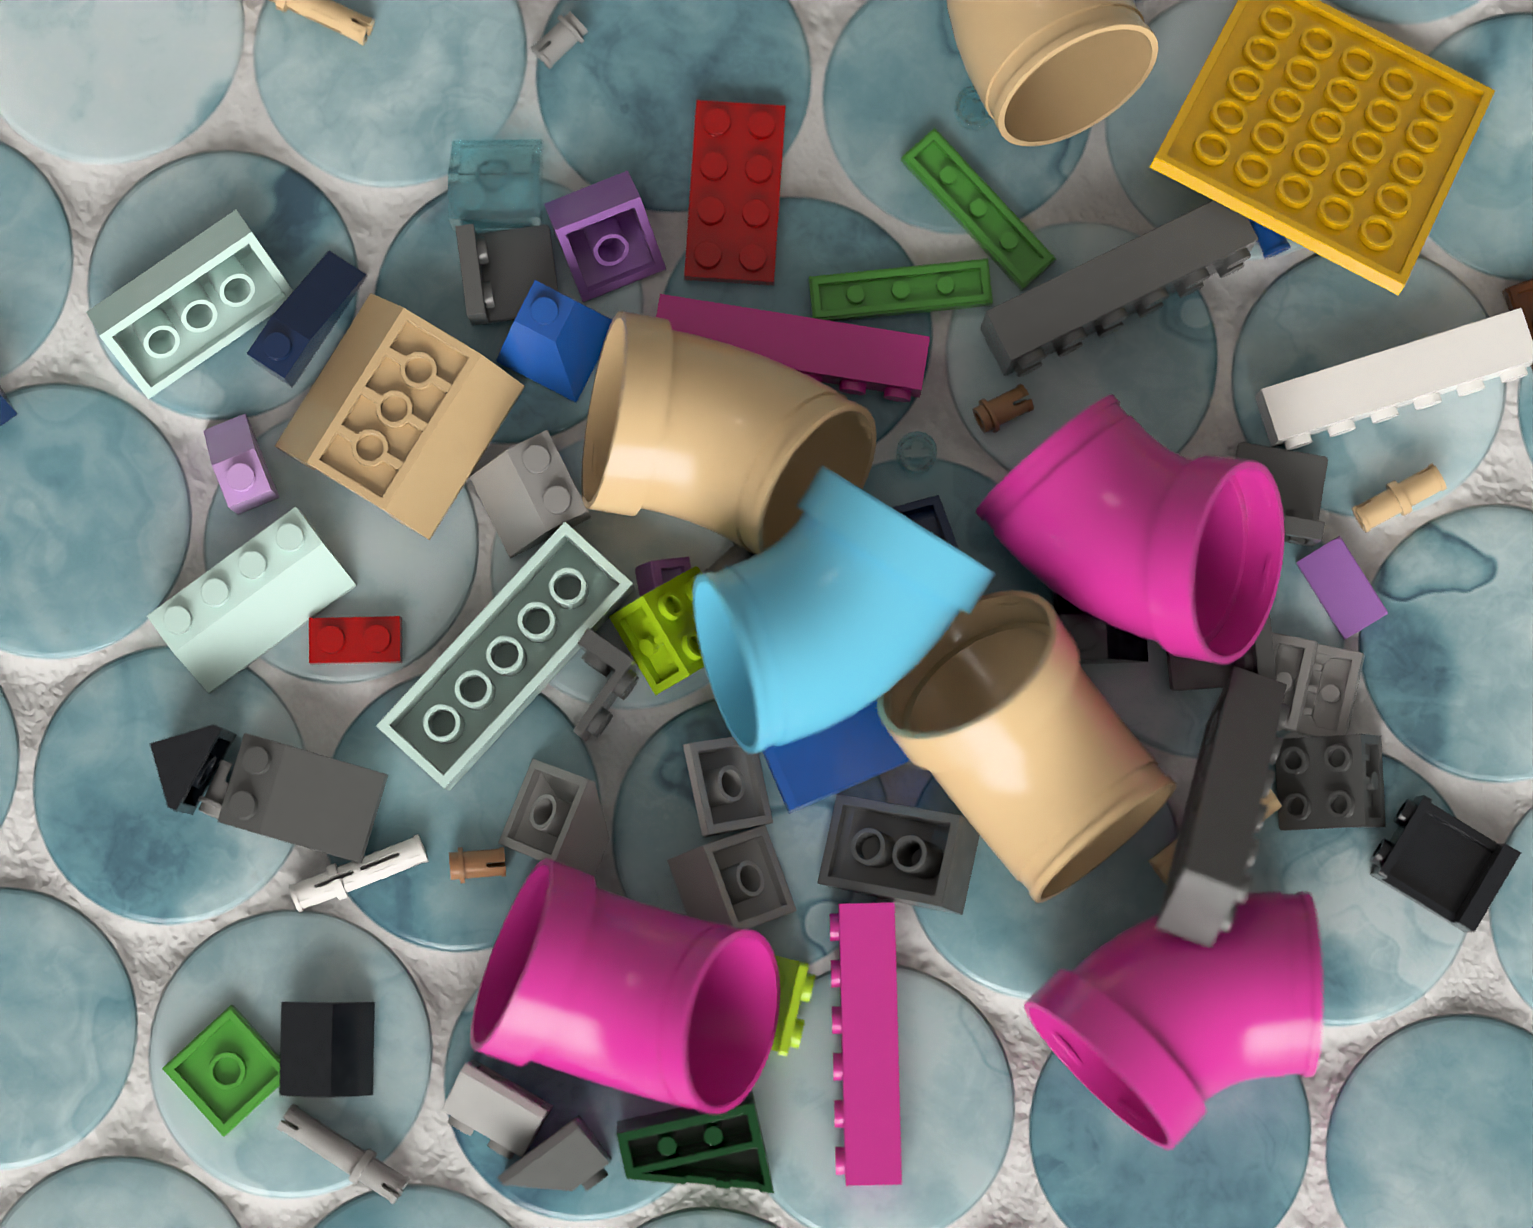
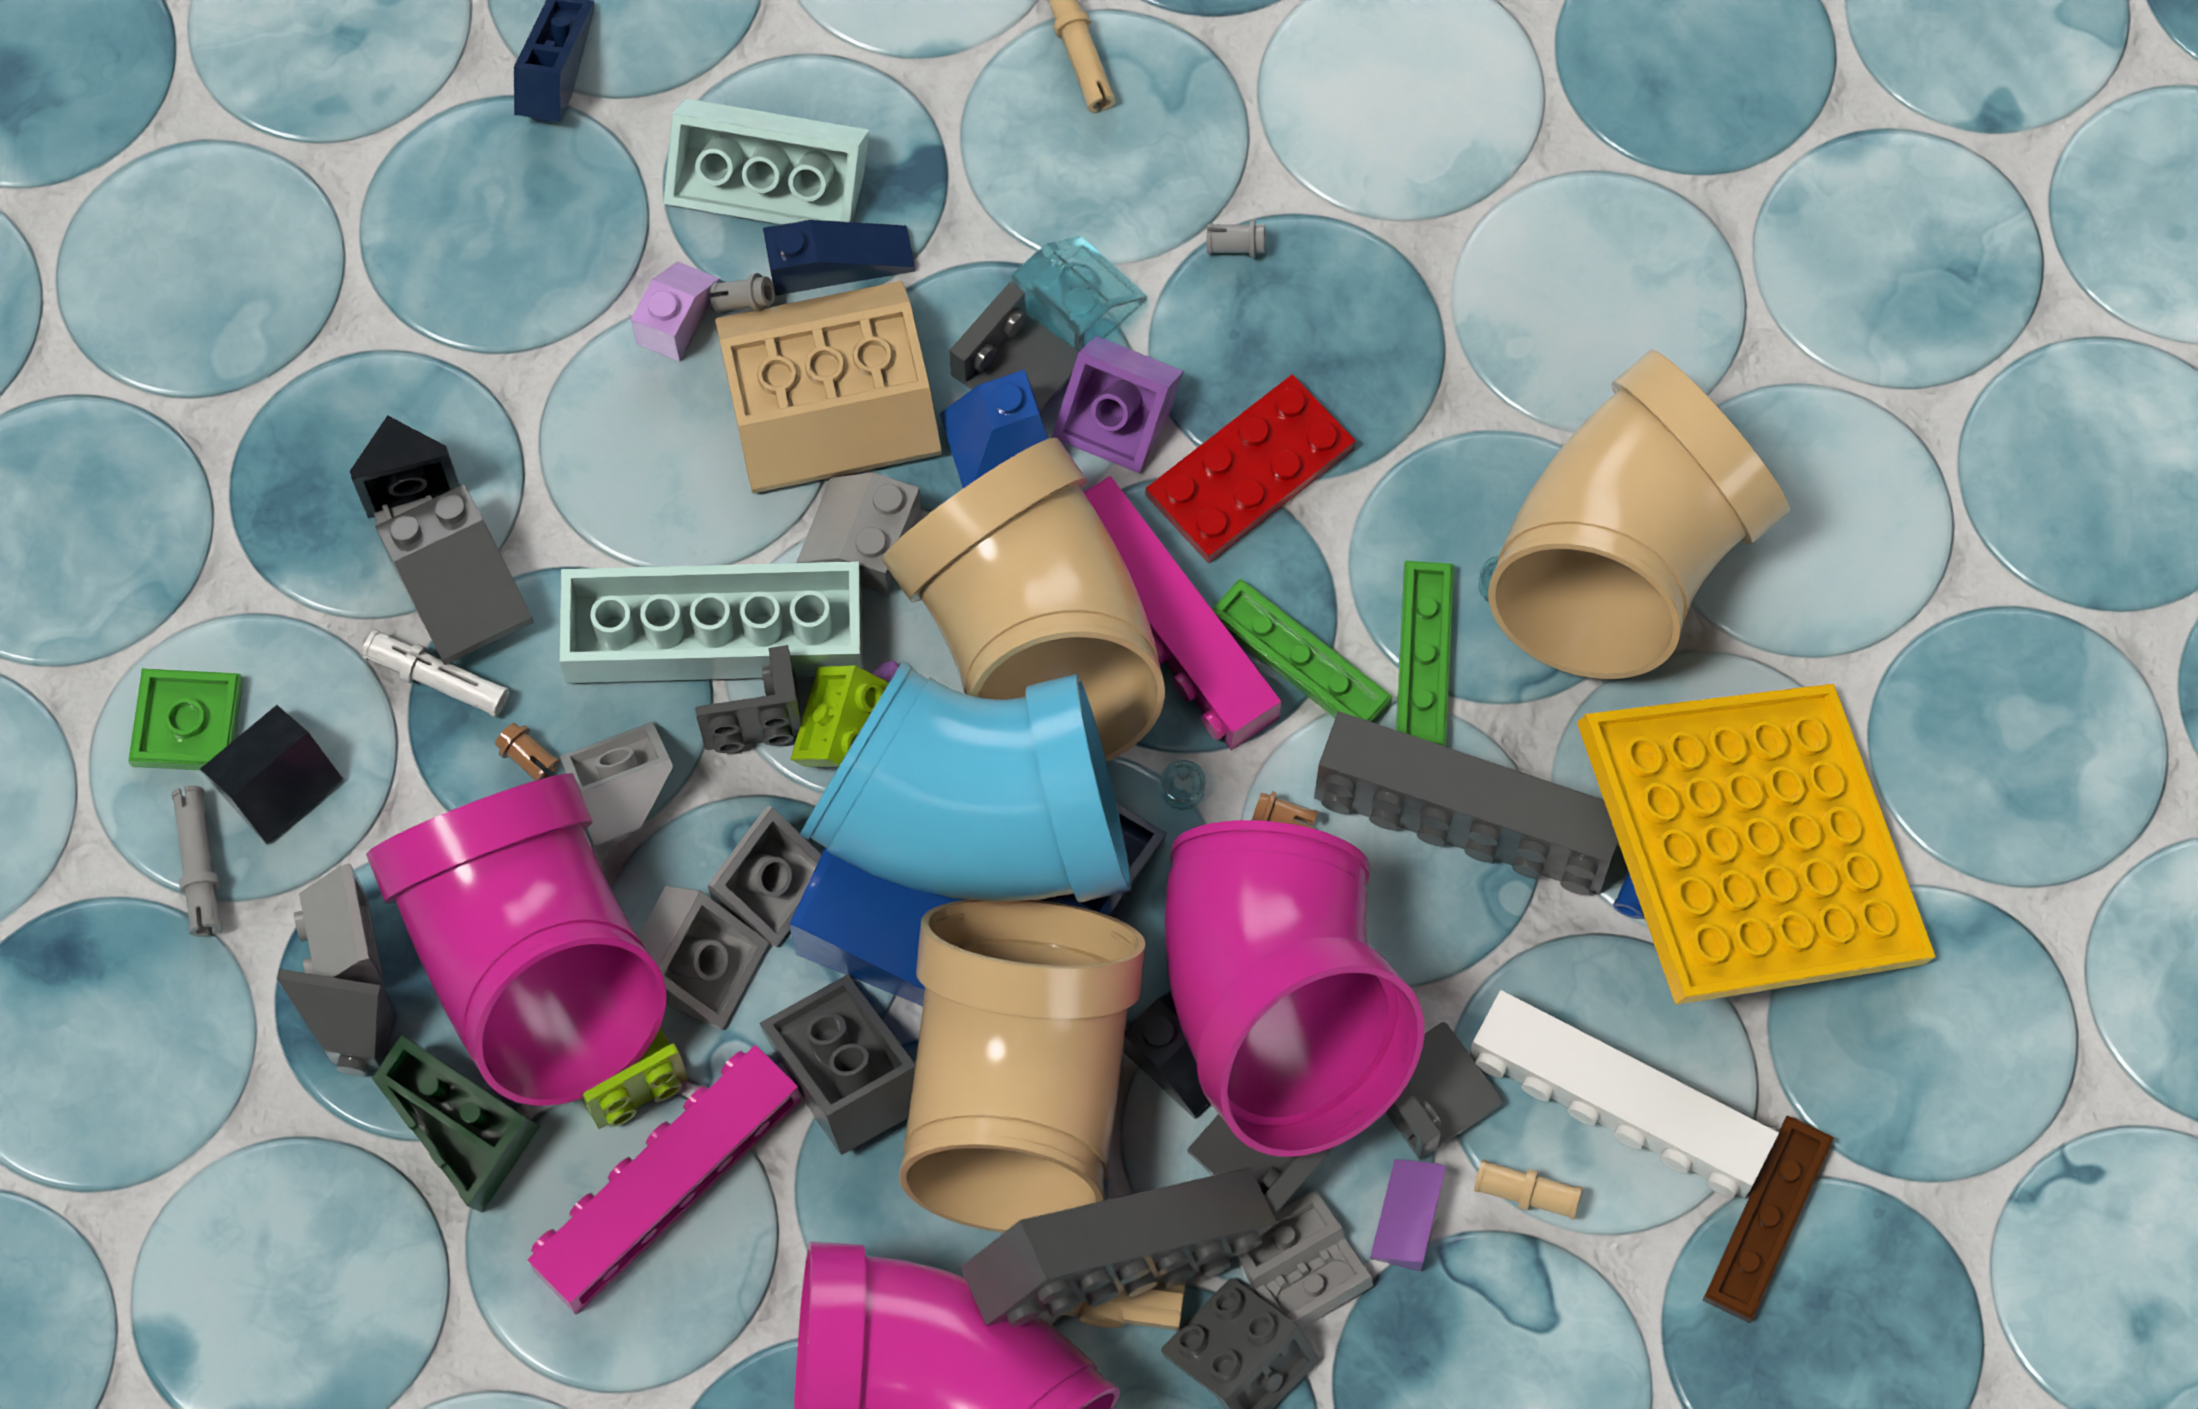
camera: 45 degrees right, 15 degrees down
(251, 600) = (577, 405): light aqua slope -> none
(283, 403) = (752, 292): none -> light grey pin
(355, 640) = (619, 510): red plate -> none

